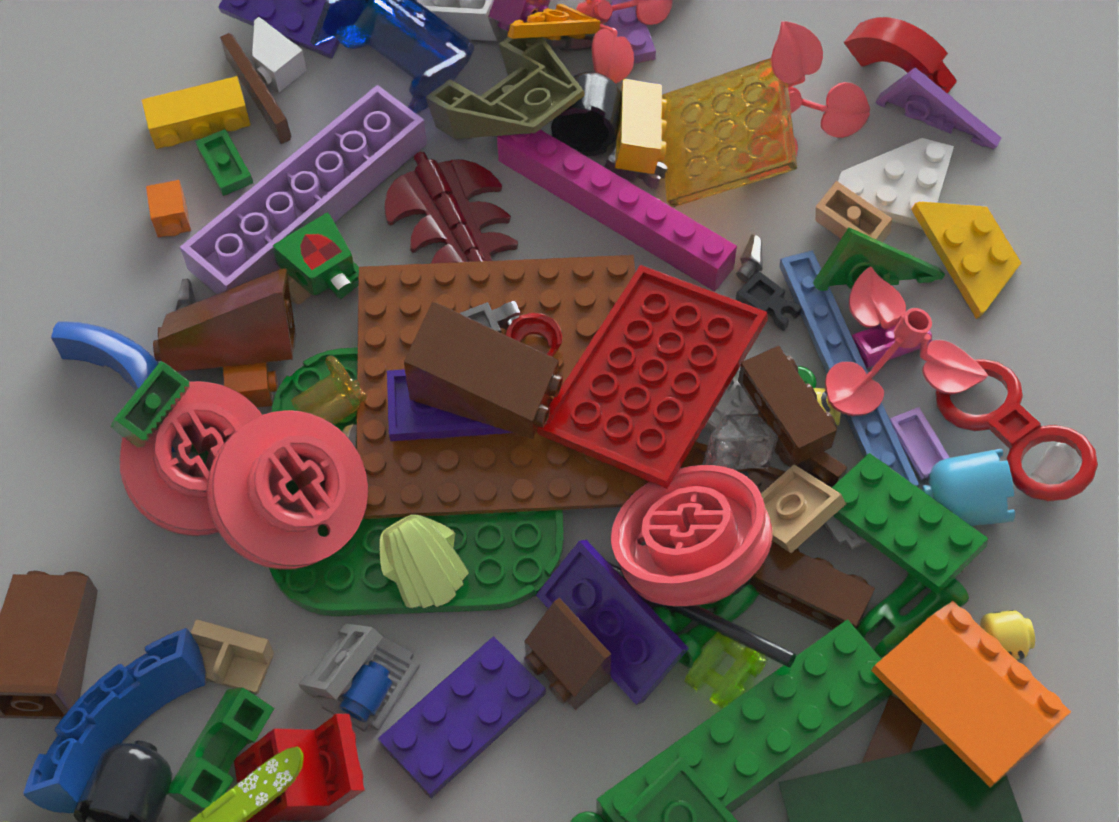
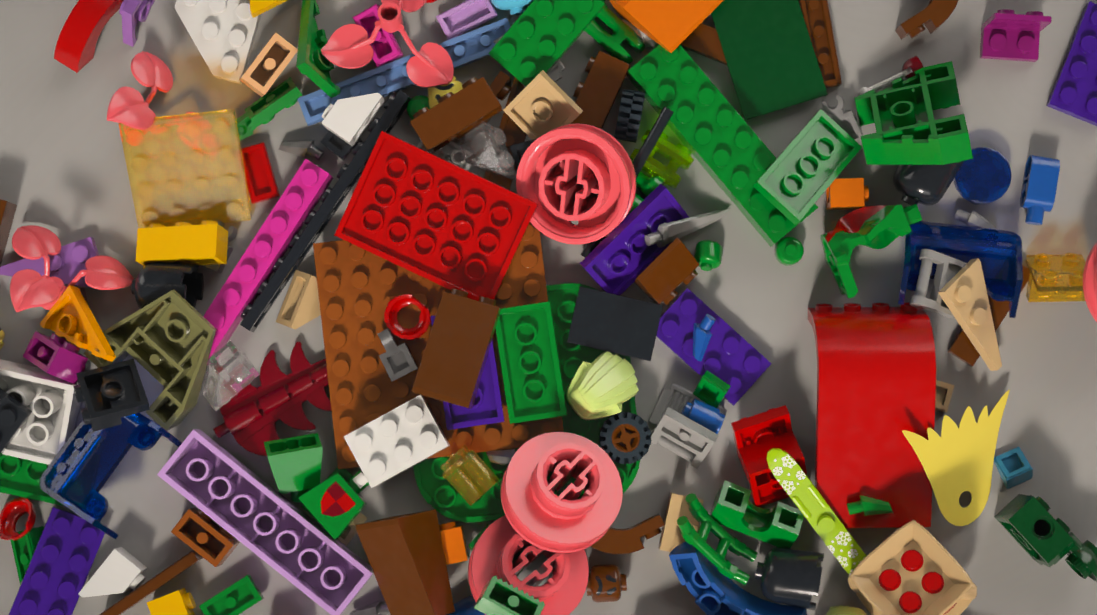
camera: 90 degrees left, 25 degrees up
(167, 558) = (606, 583): none -> reddish brown head
(194, 711) = (725, 543): none -> green piece
(218, 582) = (628, 539): none -> reddish brown arch
(296, 129) = (205, 536): none -> dark orange brick
(346, 573) = (632, 436): none -> black wheel
(372, 220) = (295, 463): none -> green torso
(376, 313) = (396, 441): none -> white brick
(401, 708) = (711, 389): none -> green tile
(460, 472) = (530, 363): none -> green plate
(472, 40) = (110, 394): none -> black plate
(475, 694) = (702, 336): none -> blue bar
(485, 161) = (227, 375): none -> clear slope
(503, 586) = (615, 323): none -> black tile
(563, 244) = (300, 302): none -> tan slope
(589, 720) = (708, 254): none -> green piece
(620, 241) = (317, 221): none -> black plate
(628, 684) = (670, 231): none -> light grey bar
(725, 212) = (259, 173): none -> red tile
(786, 620) = (629, 115): none -> black wheel
(787, 298) = (351, 116): none -> white slope
(799, 219) = (266, 107): none -> green hinge

